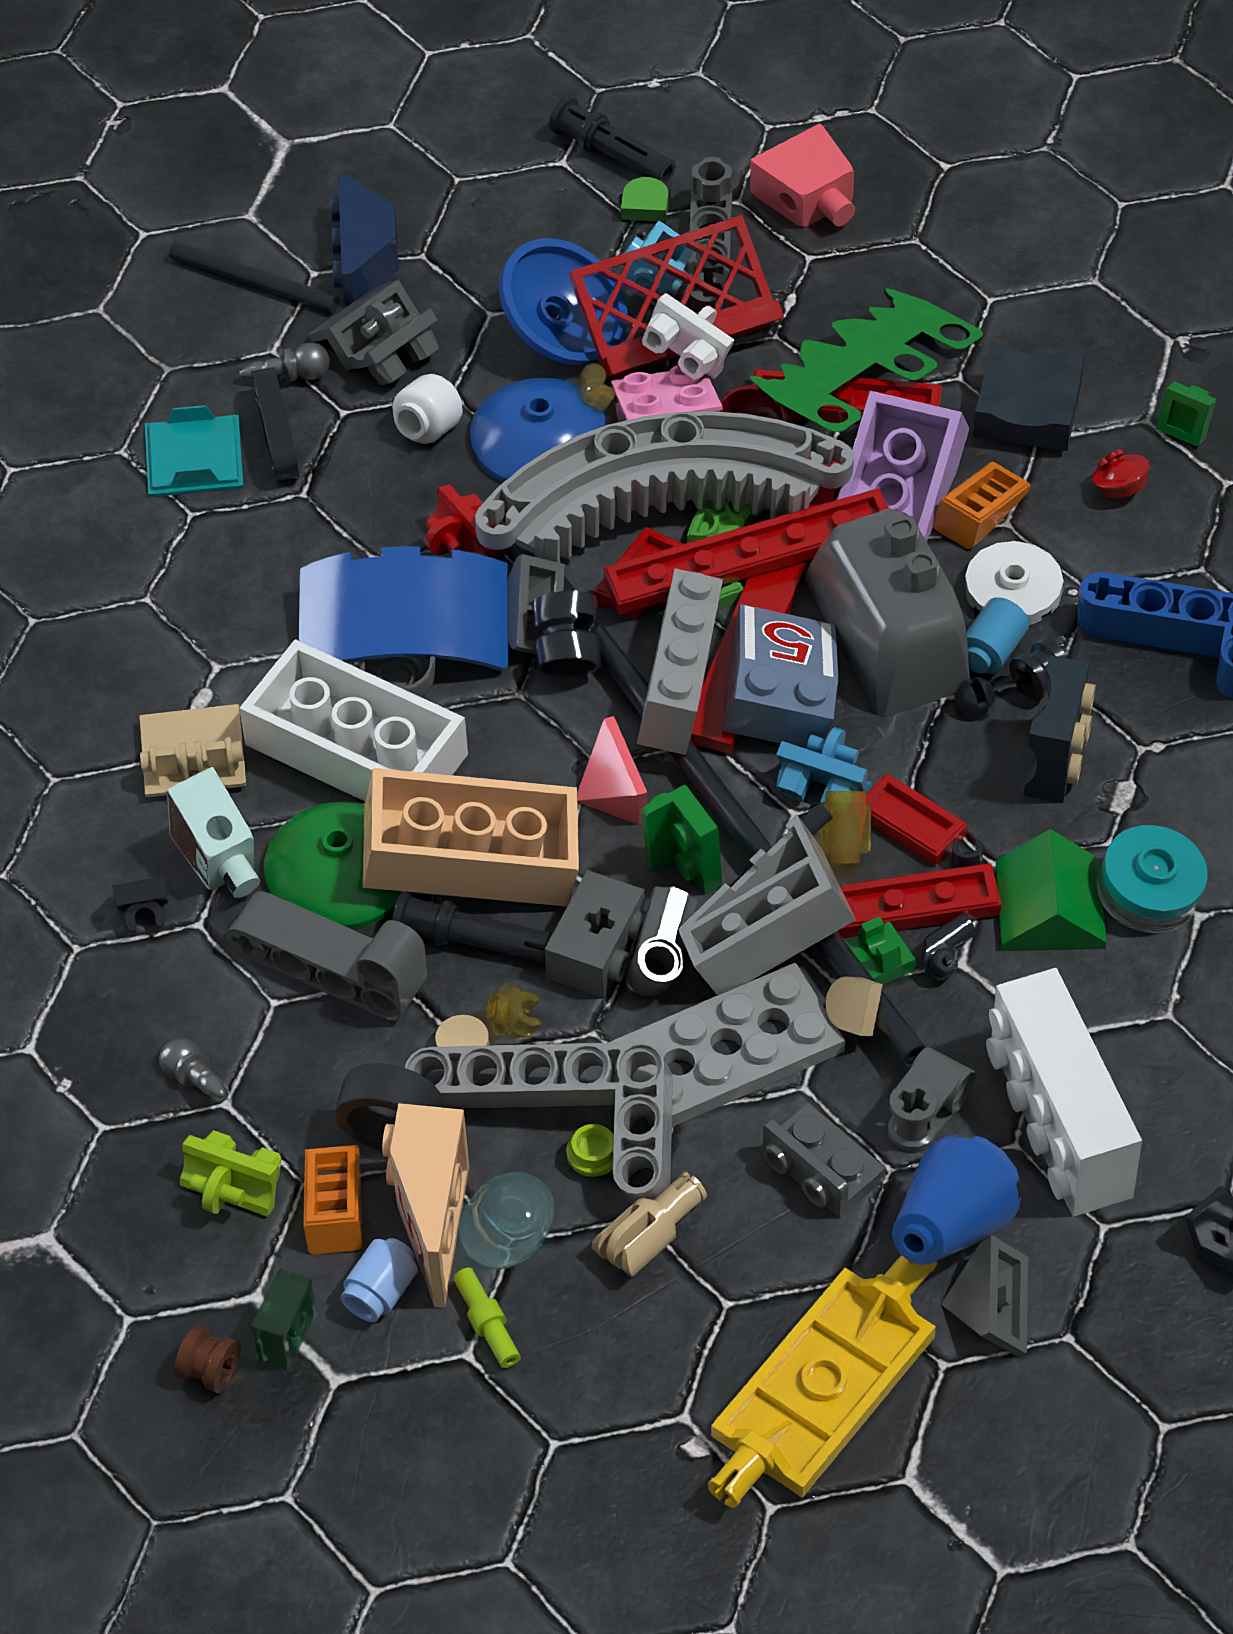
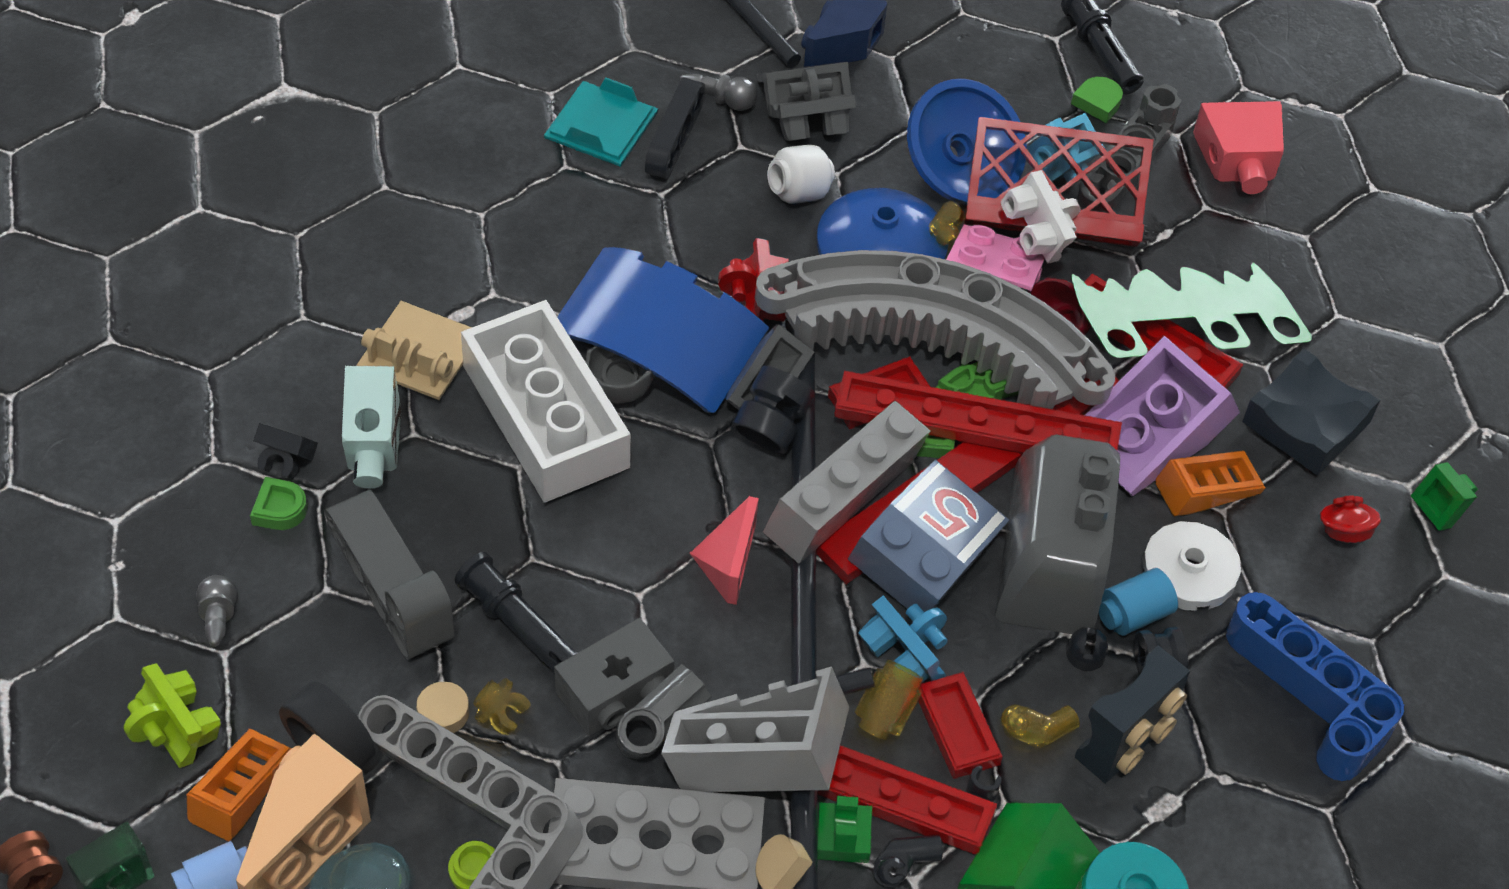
camera: 25 degrees right, 0 degrees up
(174, 952) = (279, 505): none -> bright green tile
(325, 878) = (455, 523): green dish -> none
(470, 837) = (563, 536): light nougat brick -> none
(682, 832) = (735, 628): green bracket -> none
(978, 786) = (1036, 727): none -> clear yellow arm

